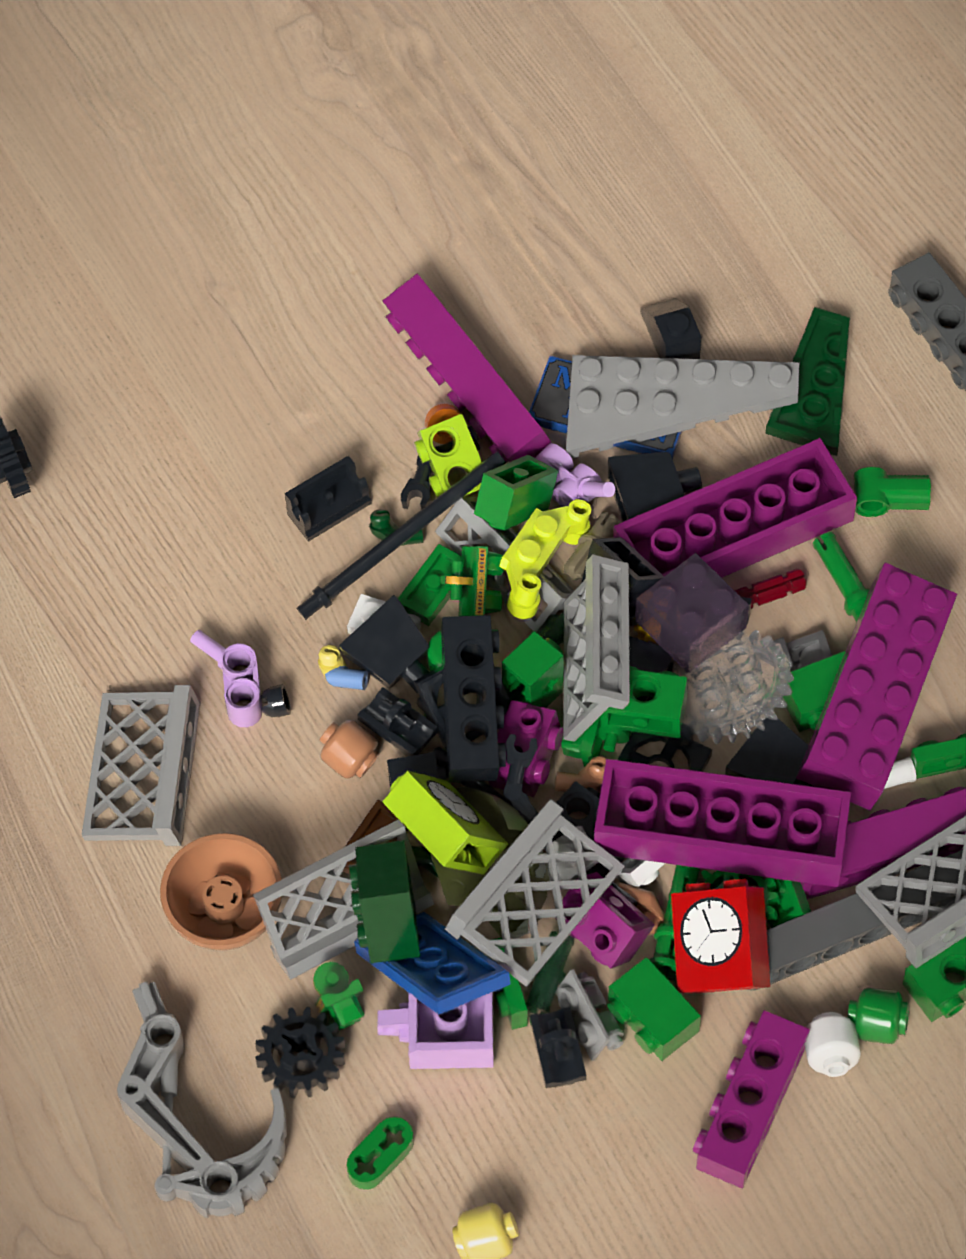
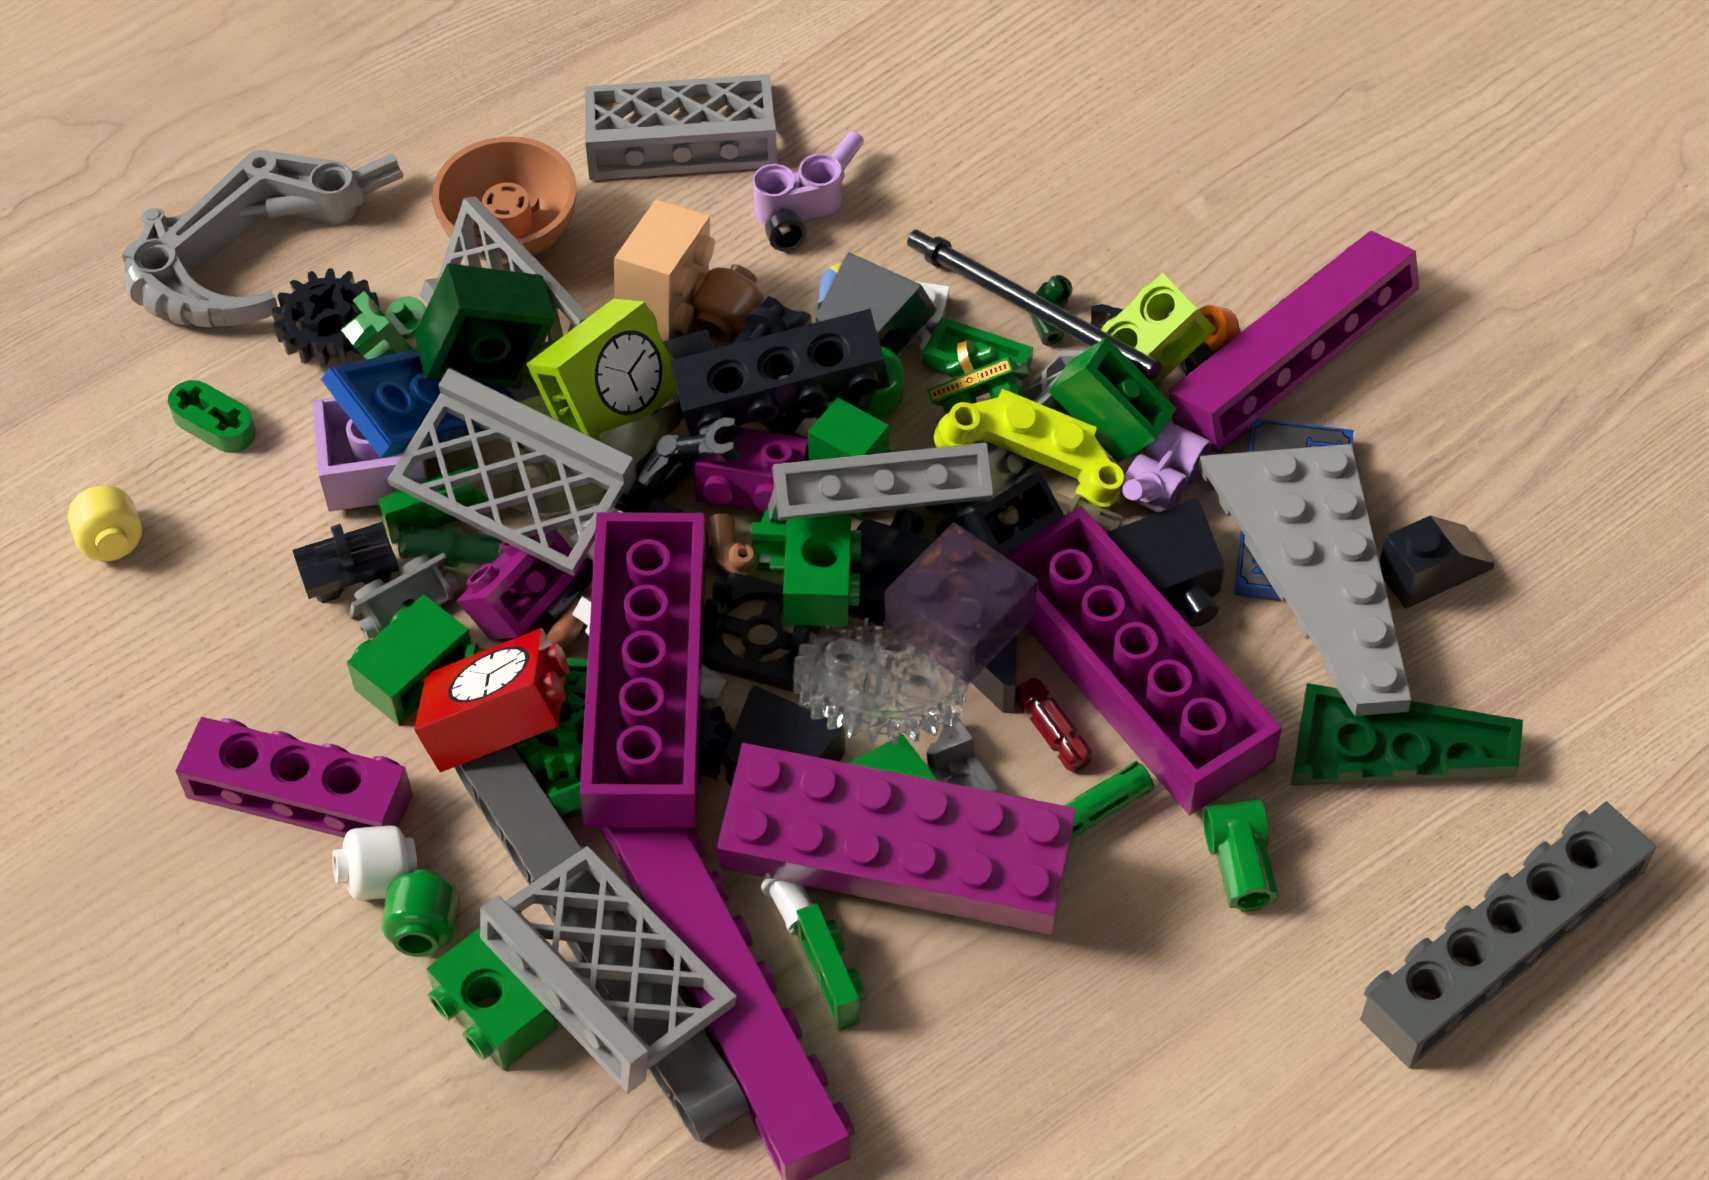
camera: 80 degrees right, 5 degrees down
(327, 498) = (1075, 232): black hinge -> none
(329, 782) = (665, 264): none -> light nougat brick

